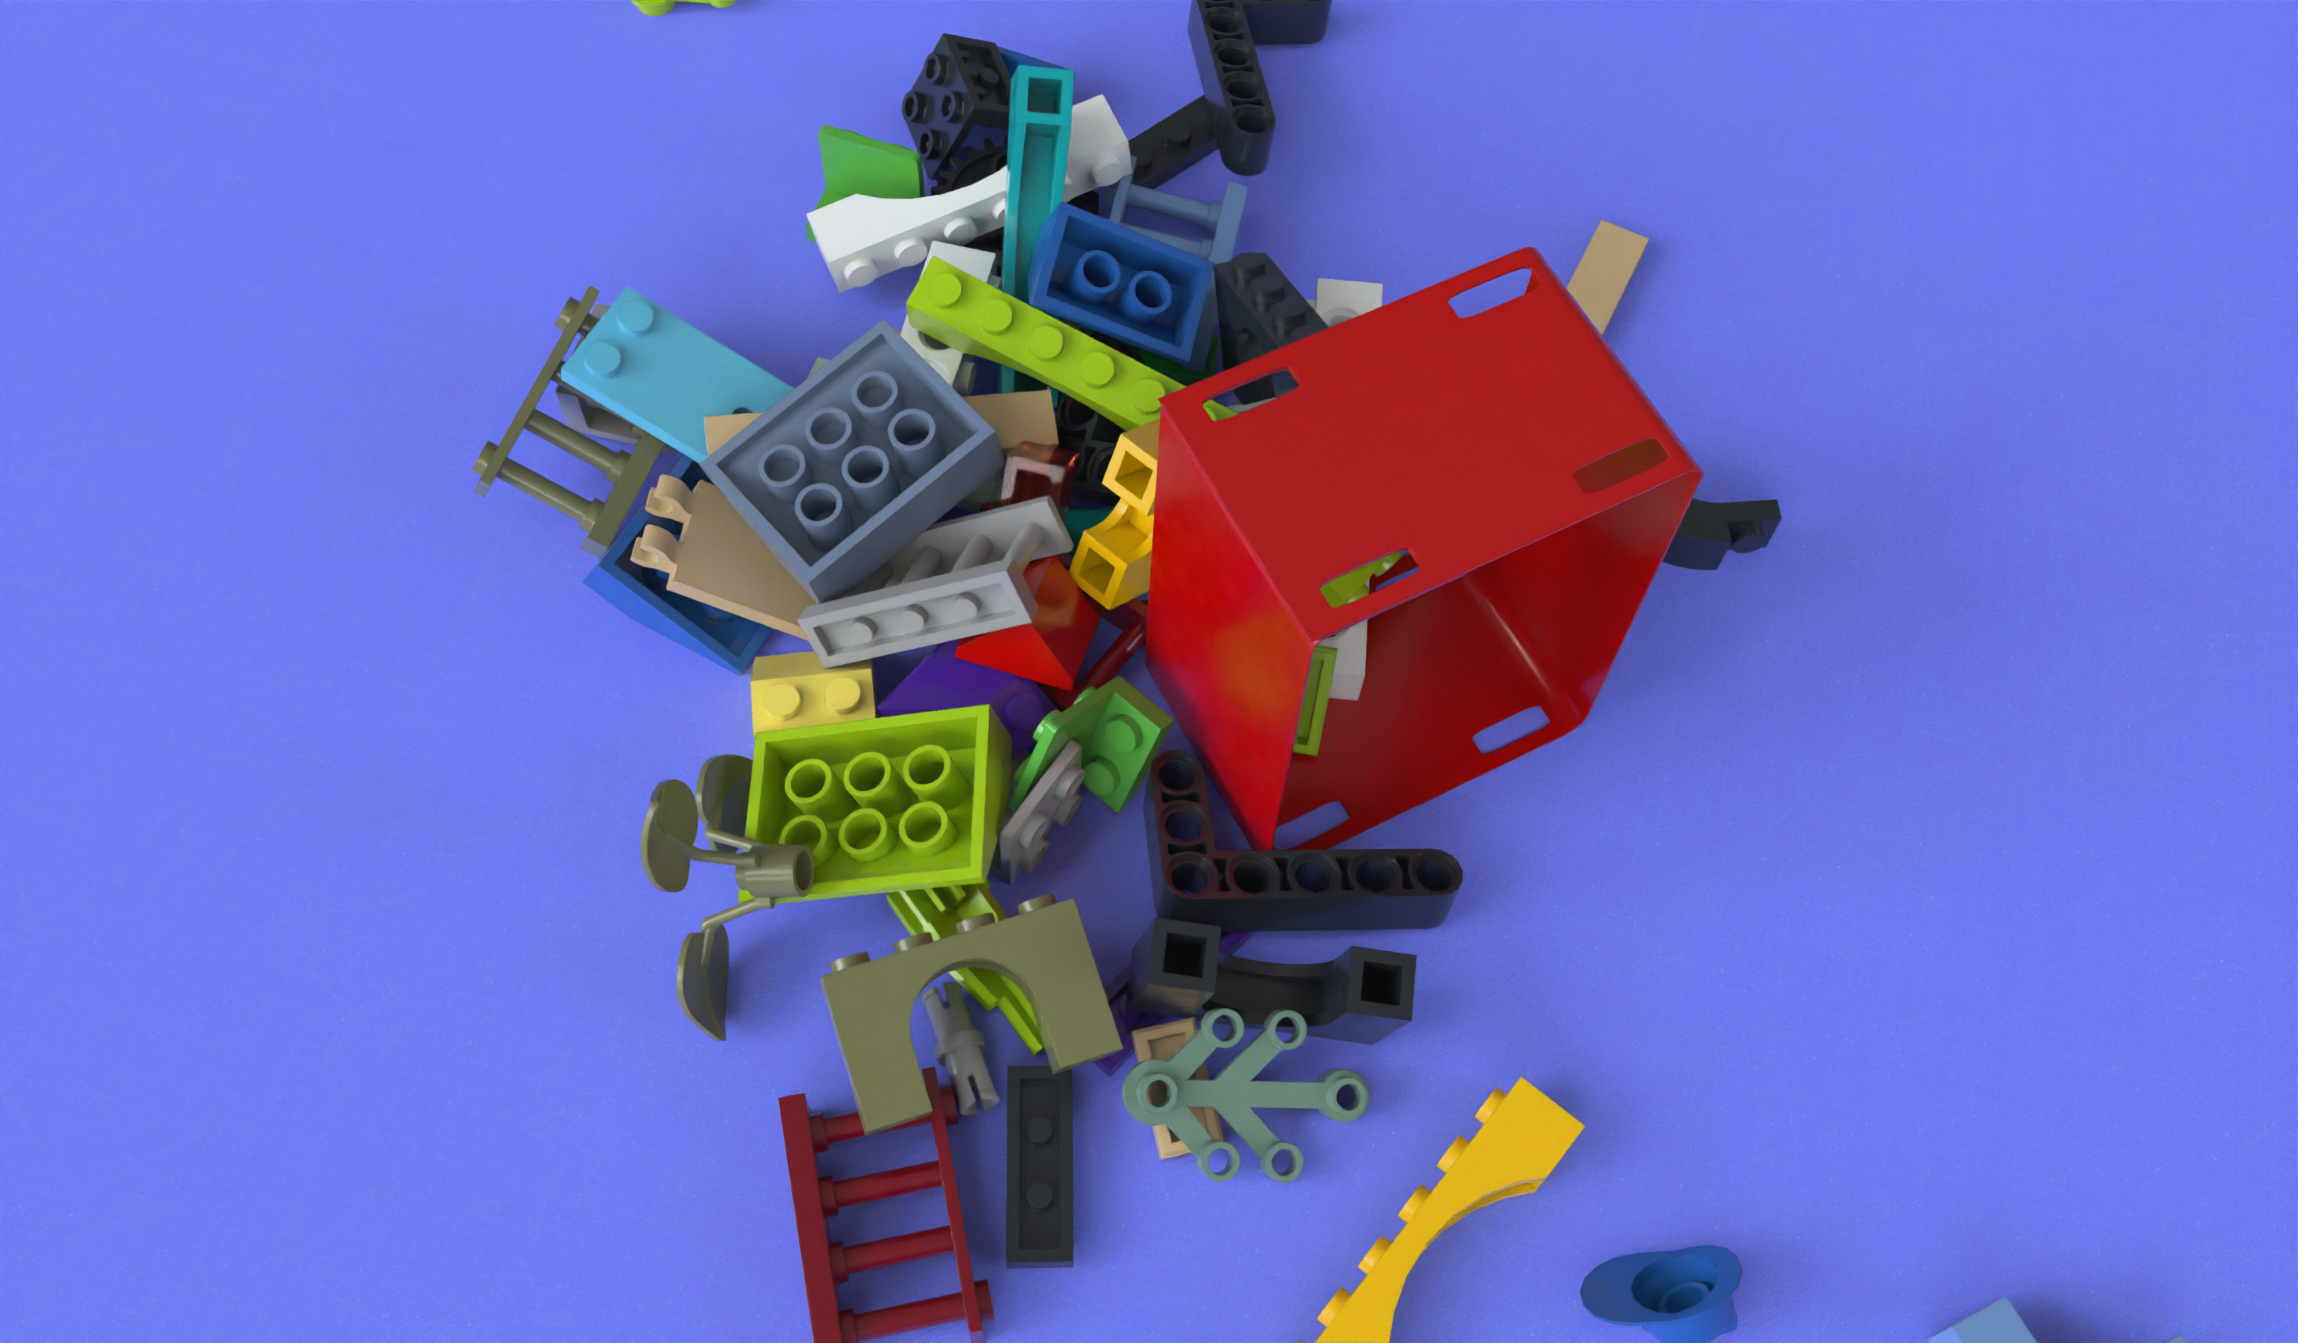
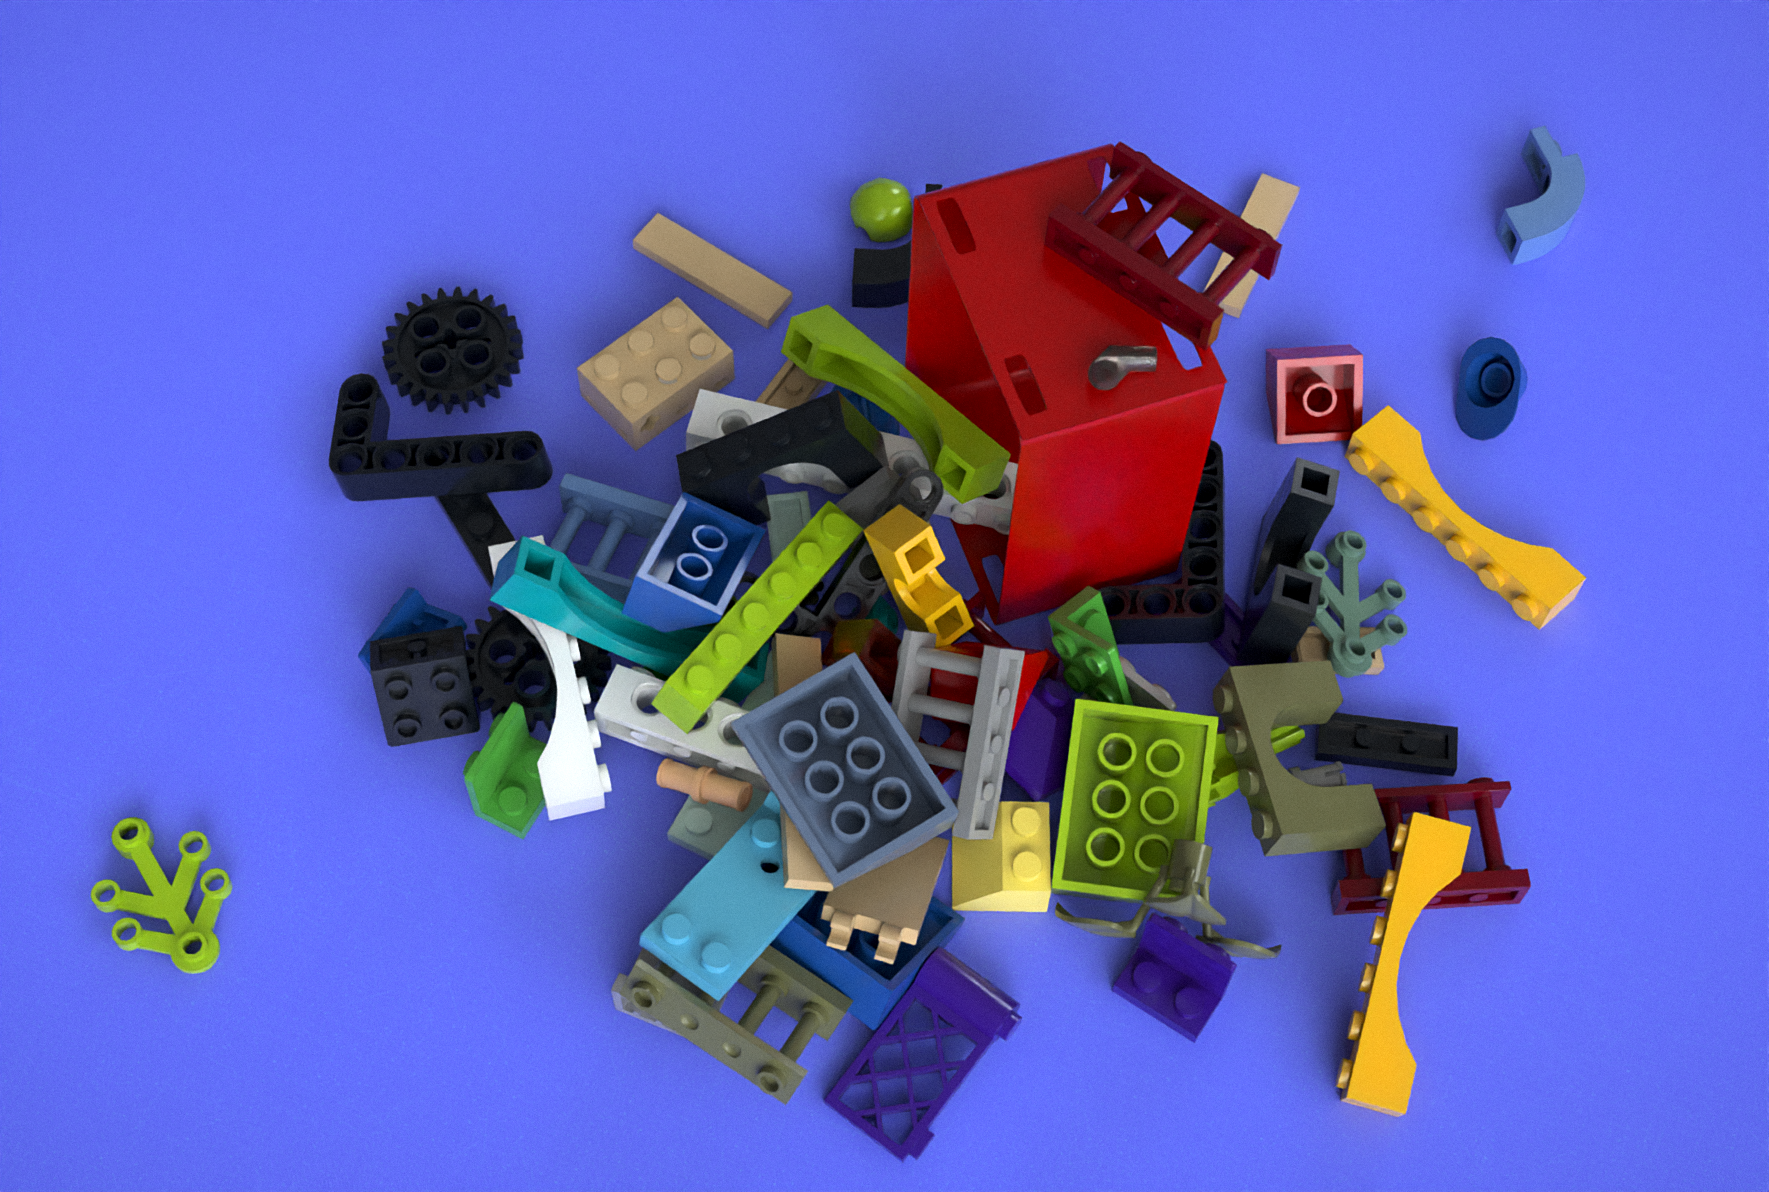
camera: 80 degrees left, 0 degrees up
(556, 1170) = (1380, 1061): none -> yellow arch
(615, 684) = (960, 1000): none -> dark purple piece
(651, 925) = (1175, 976): none -> dark purple bracket
(1298, 487) = (1118, 361): none -> clear smoke arm
(1398, 76) = (452, 350): none -> black gear
(1407, 245) = (655, 373): none -> tan piece
(1473, 465) = (1156, 286): none -> dark red fence
(1594, 1030) = (1314, 393): none -> slope
(1737, 469) = (882, 209): none -> lime hair
(1833, 936) = (1265, 210): none -> tan tile

